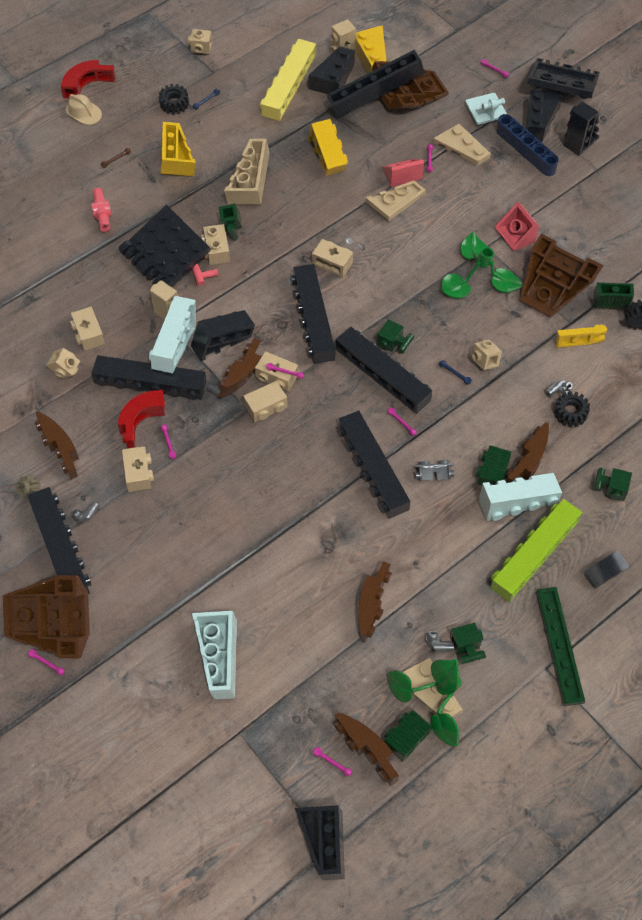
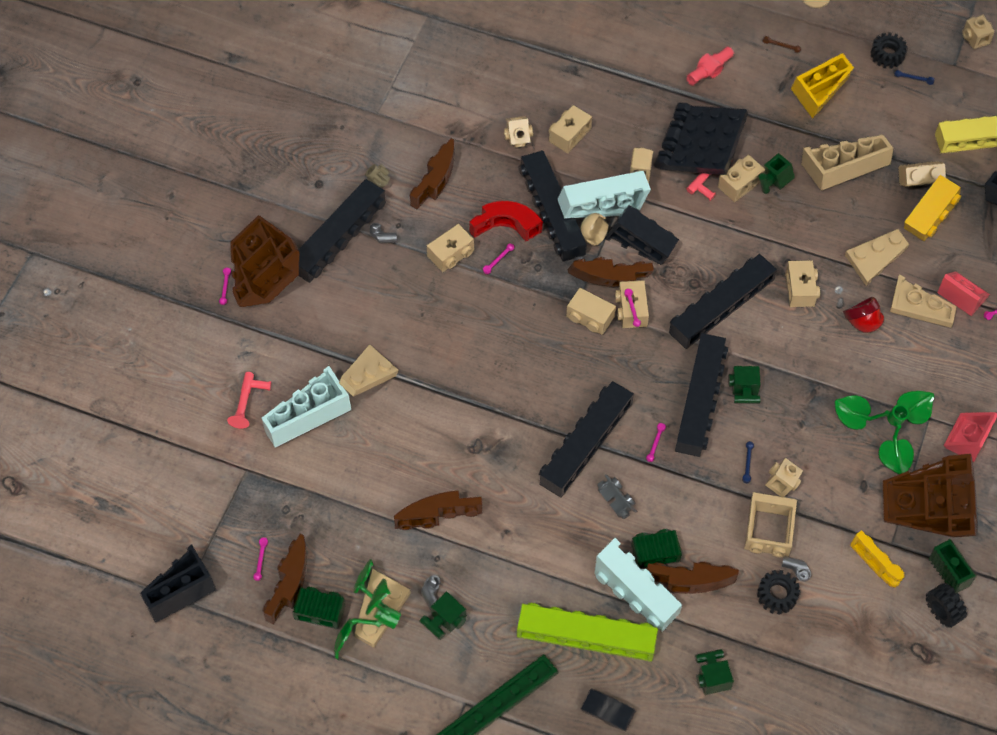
camera: 60 degrees right, 0 degrees up
(158, 689) = (239, 420): none -> coral piece
(191, 360) = (594, 228): none -> tan hair
(214, 587) = (367, 372): none -> tan wing
(293, 138) = (920, 173): none -> tan brick
(338, 204) = (873, 256): none -> tan wing
(384, 234) = (865, 315): none -> piece
(514, 366) = (773, 505): none -> tan window

